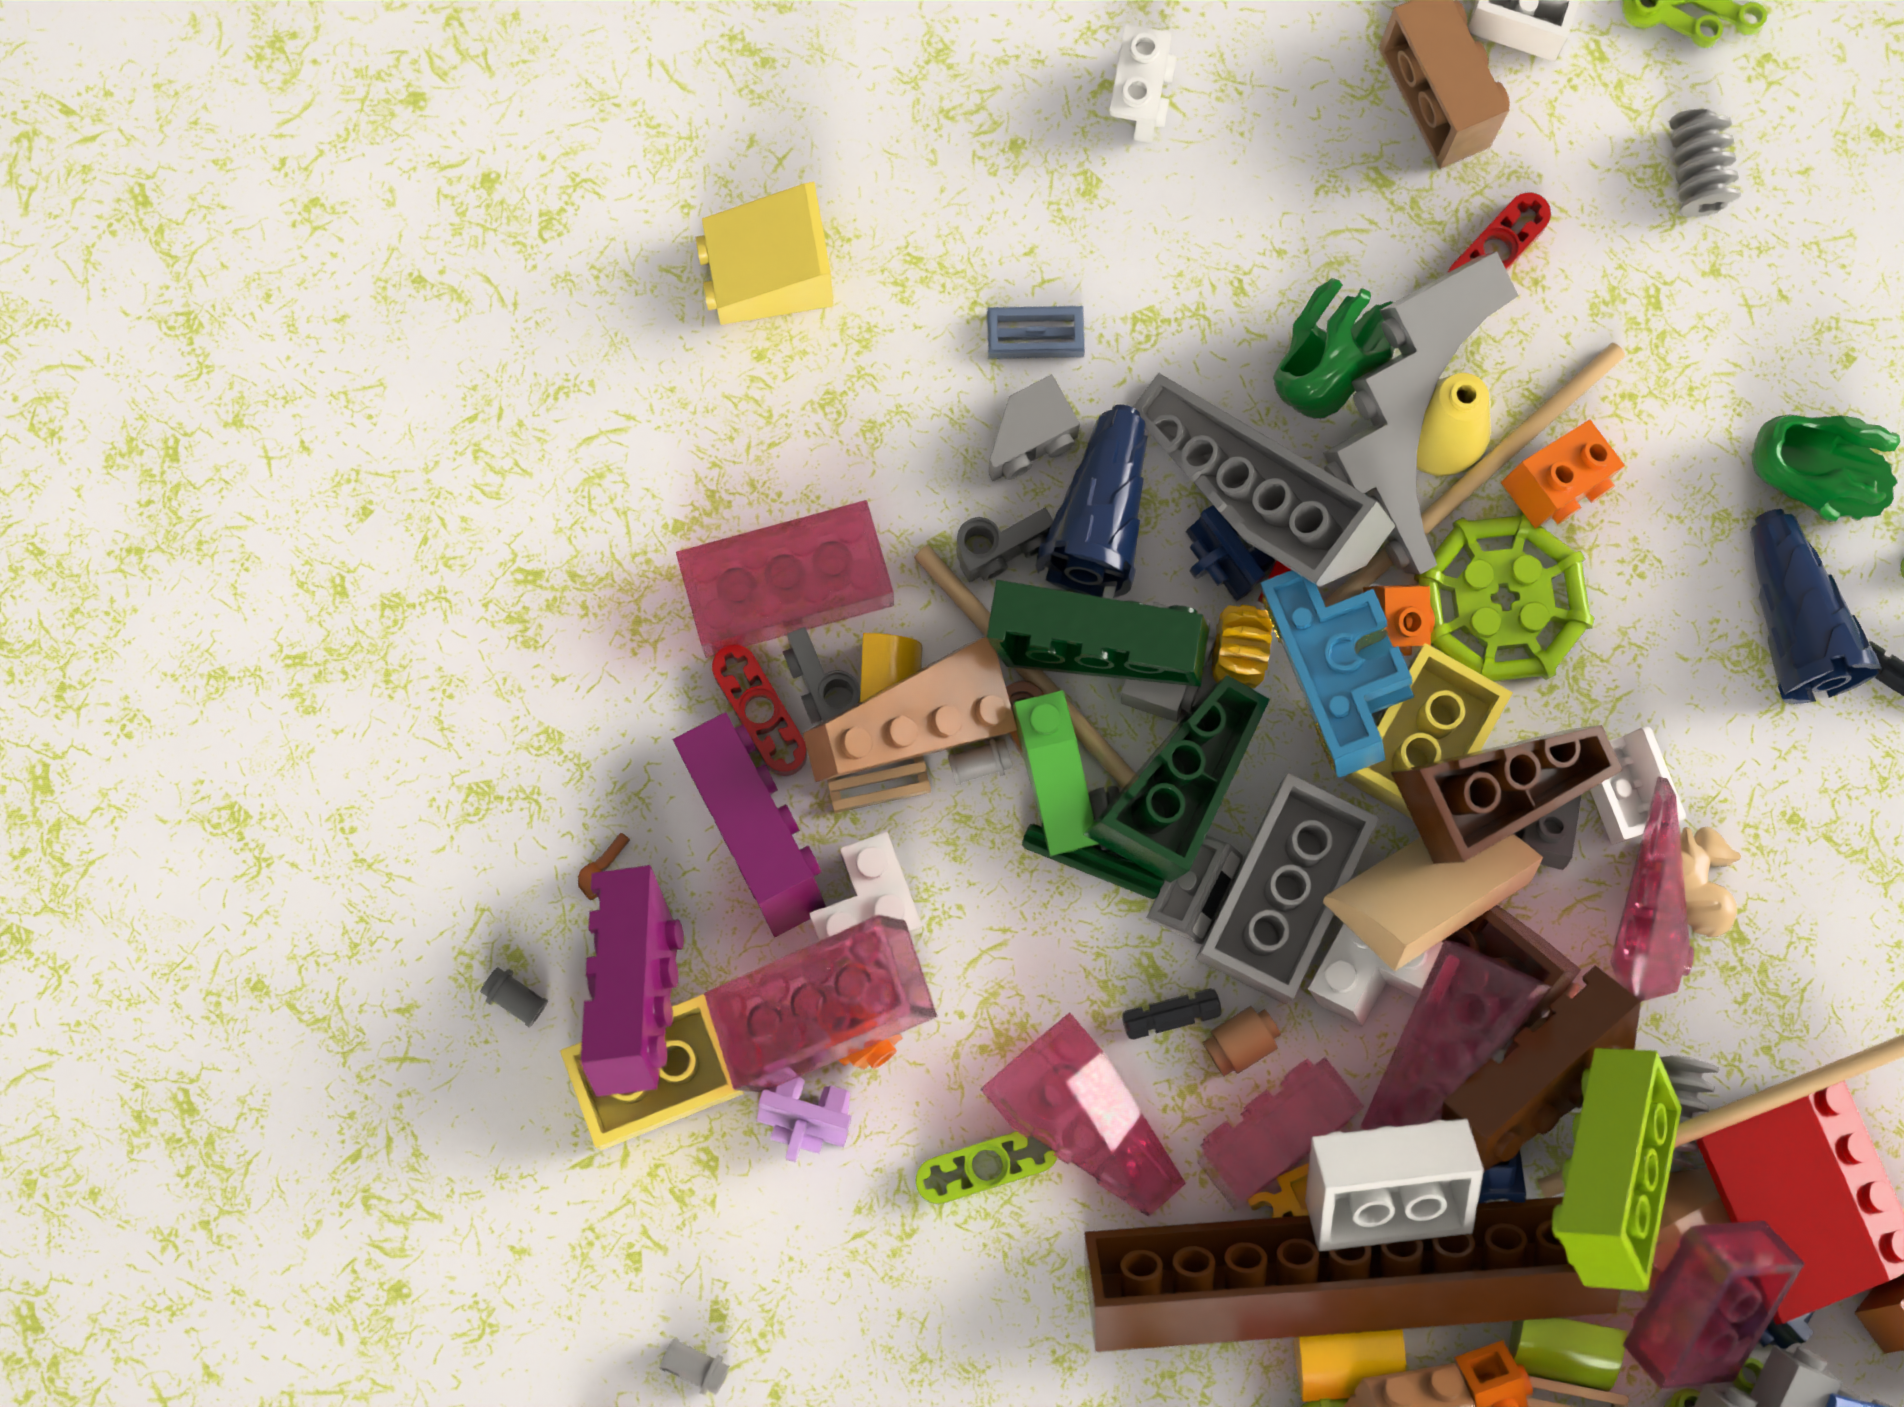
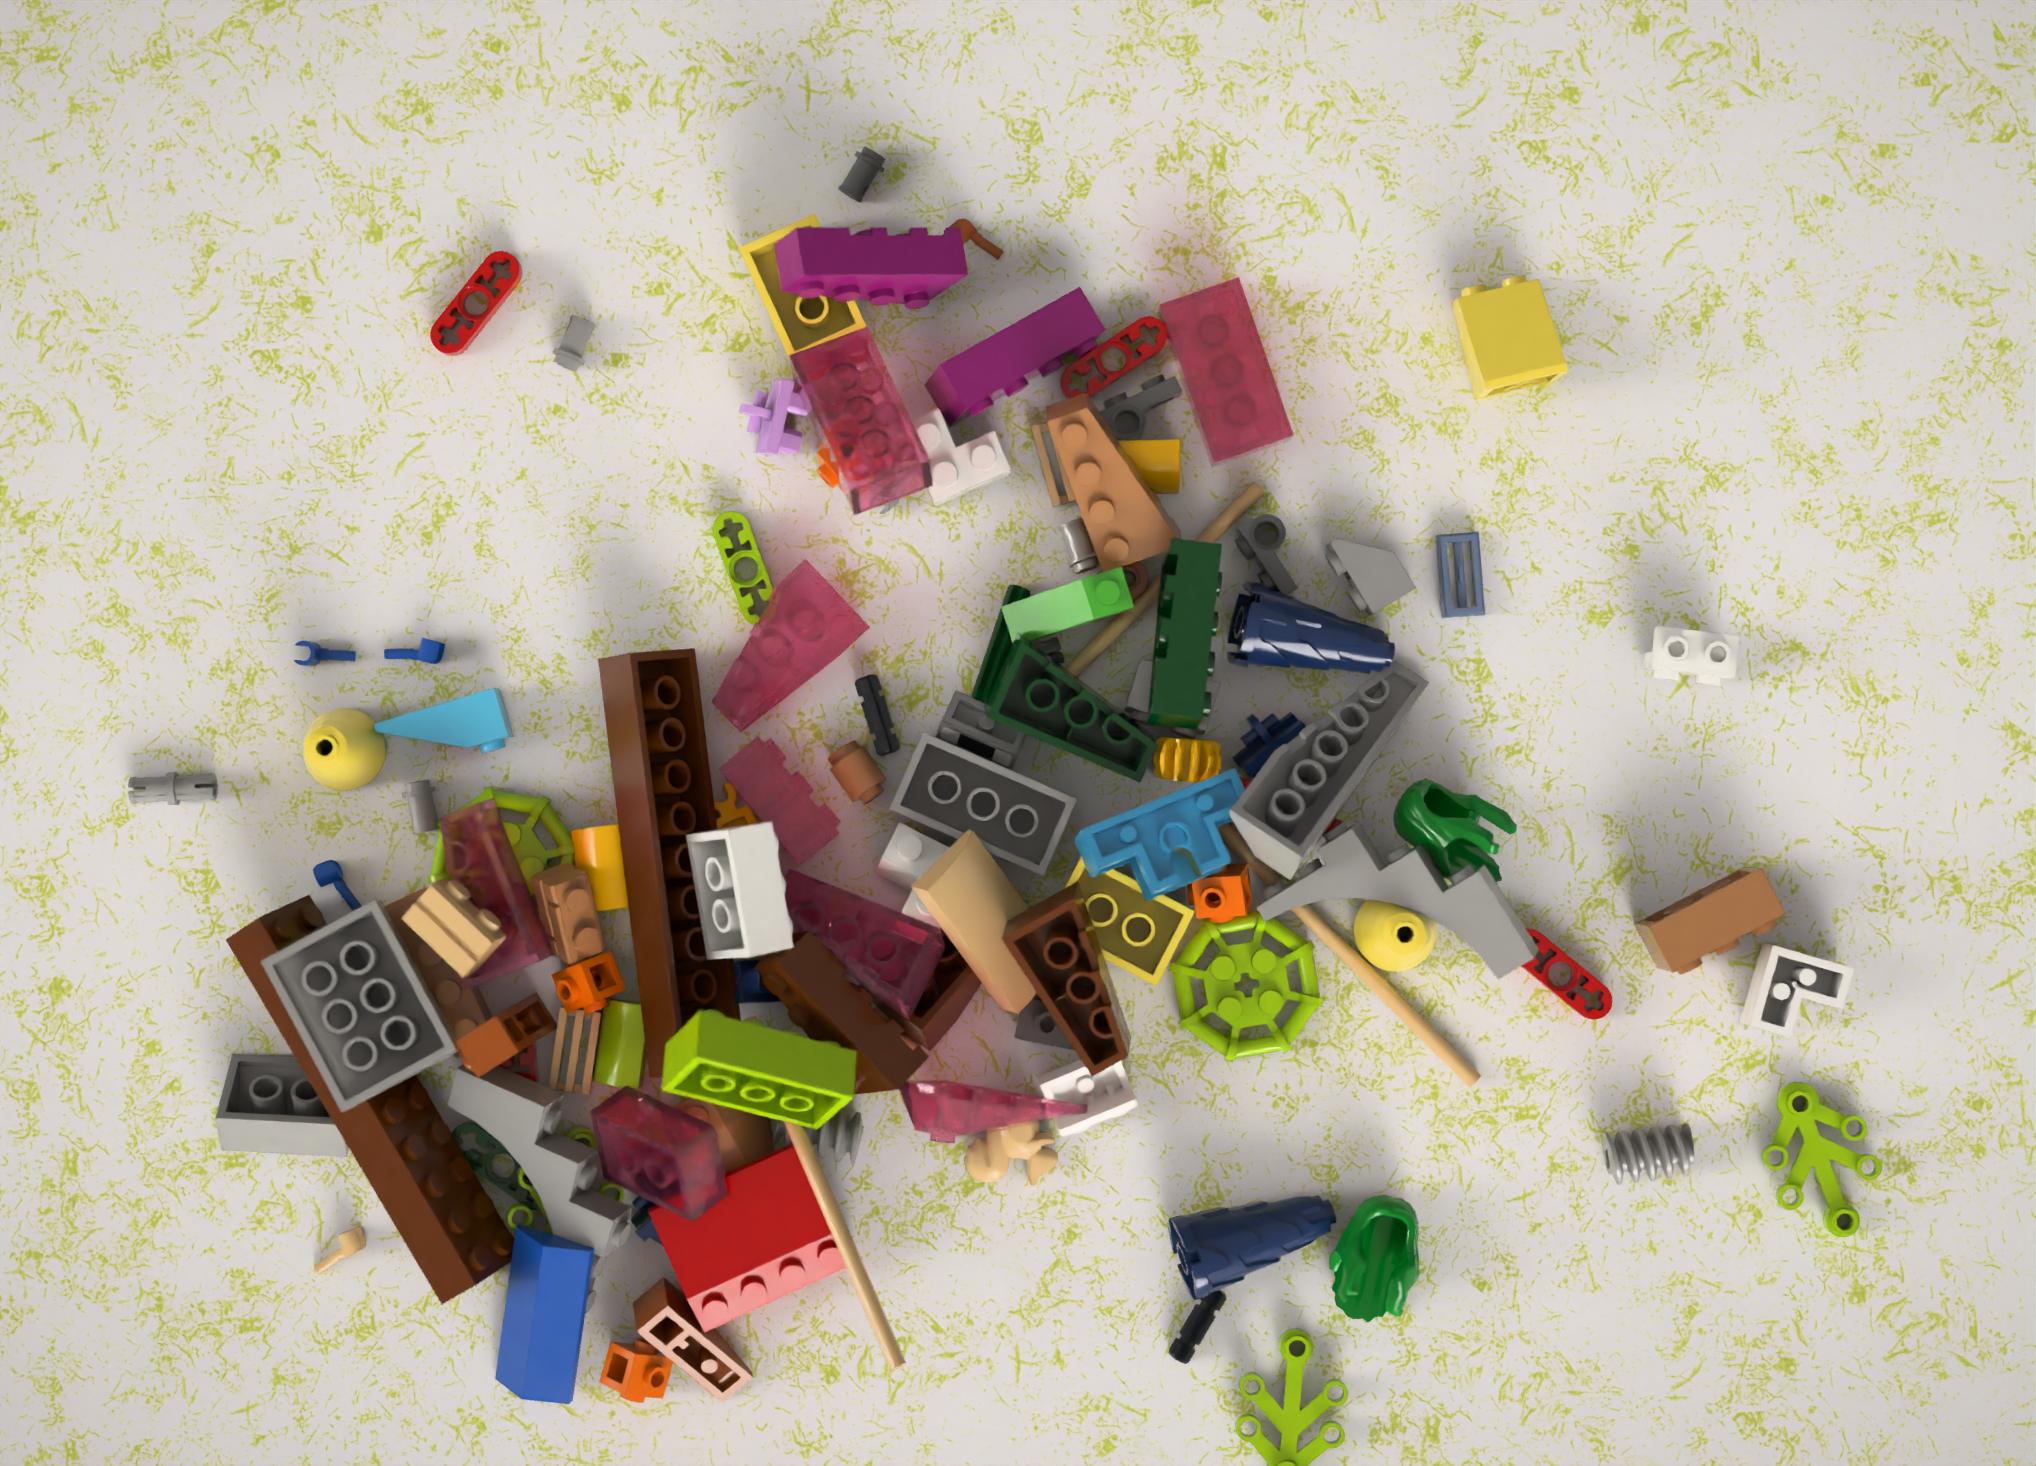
camera: 90 degrees right, 10 degrees up
(1563, 474) = (1354, 1030): orange brick -> none

